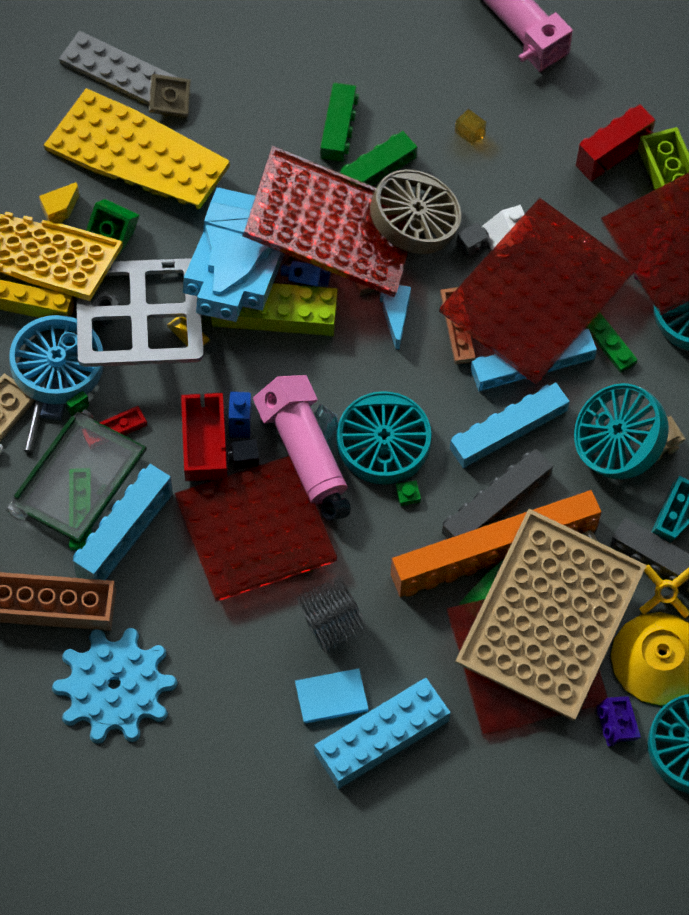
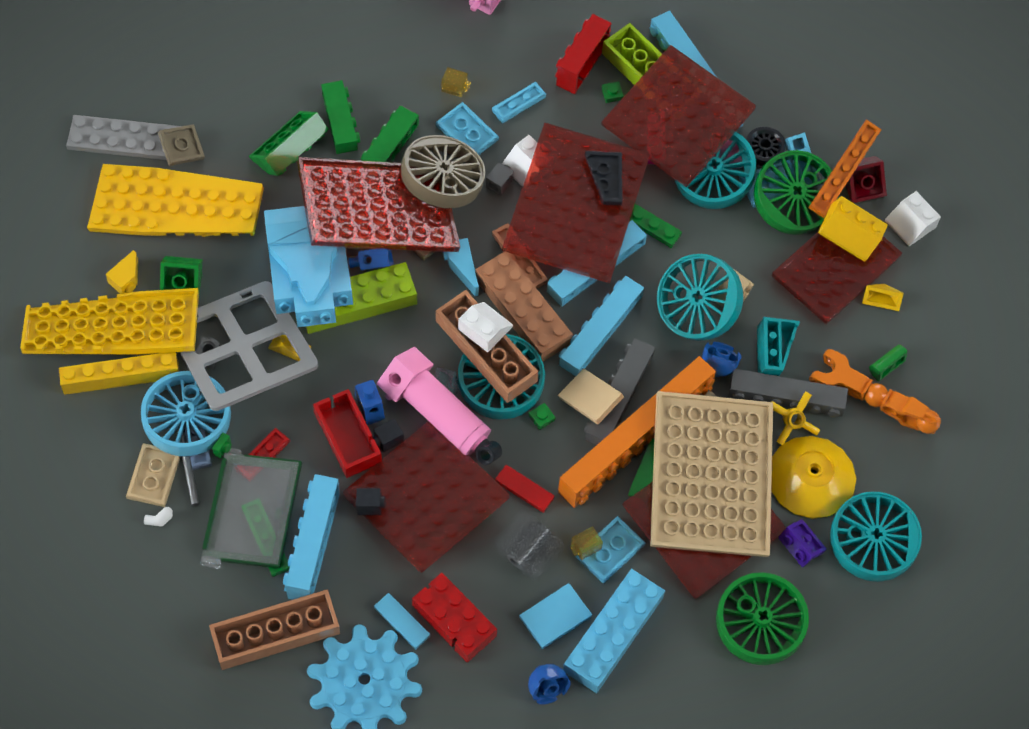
camera: 25 degrees left, 0 degrees up
(176, 641) = (402, 621): none -> medium azure tile
(194, 511) = (370, 501): none -> black brick
(228, 658) = (454, 617): none -> red piece
(277, 130) = (289, 142): none -> green slope
(291, 759) = (547, 683): none -> blue cylinder
(357, 558) = (524, 488): none -> red tile
(378, 401) = (501, 366): none -> nougat brick
(381, 377) = (483, 325): none -> white slope
(392, 635) = (586, 543): none -> clear yellow brick
(417, 651) = (618, 547): none -> medium azure tile
(437, 375) = (523, 305): none -> nougat brick
(463, 178) = (467, 127): none -> medium azure tile
(464, 490) = (590, 396): none -> tan tile
(528, 170) = (518, 102): none -> medium azure tile
(562, 817) = (768, 624): none -> green piece
(579, 273) = (607, 175): none -> black wing
(616, 502) = (721, 358): none -> blue cylinder
(630, 191) = (612, 92): none -> green plate

